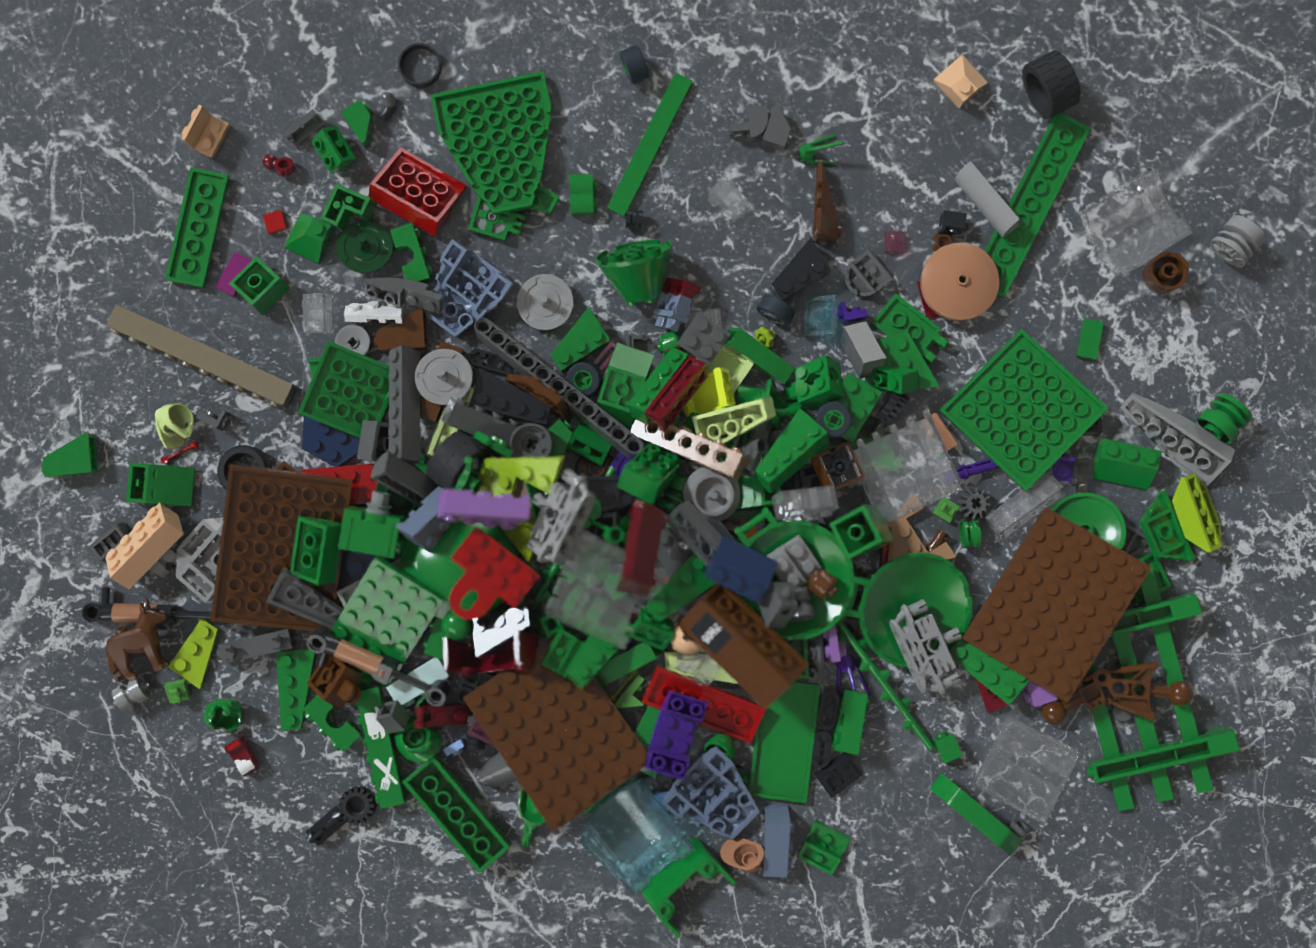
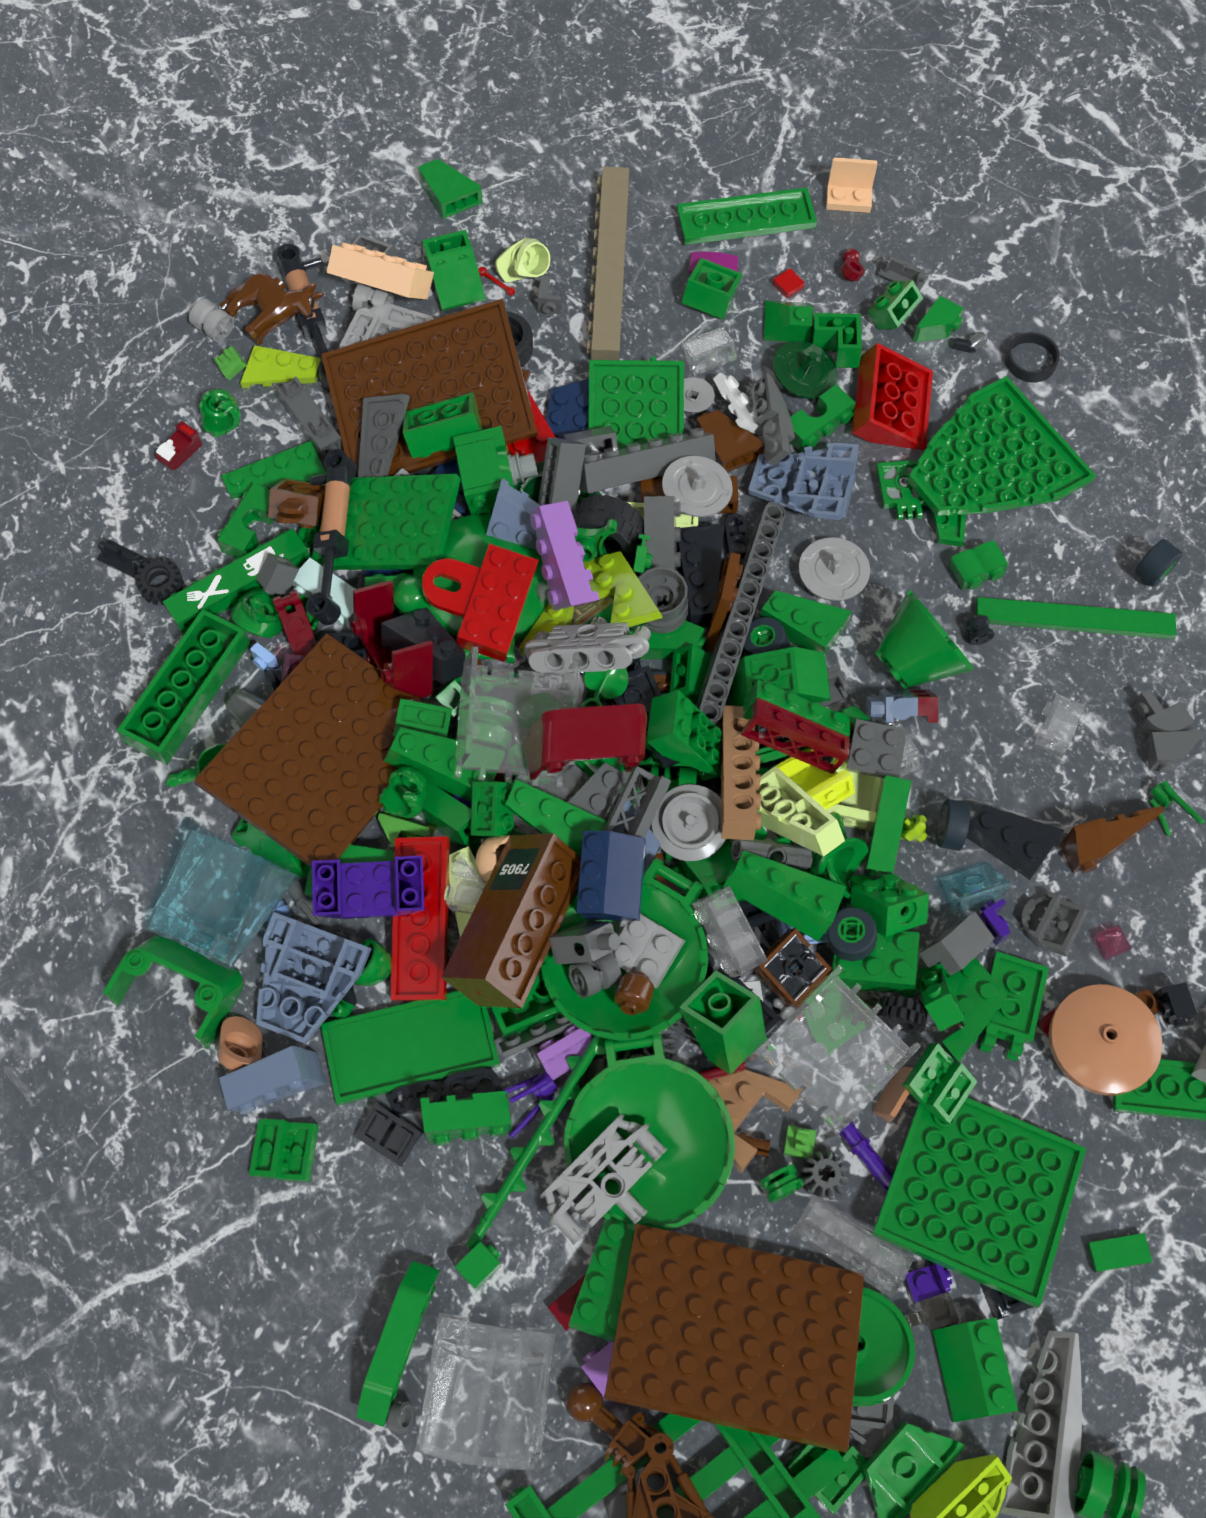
camera: 70 degrees right, 20 degrees down
(612, 684) = (405, 792): none -> green hair
(947, 403) = (939, 1083): none -> green slope

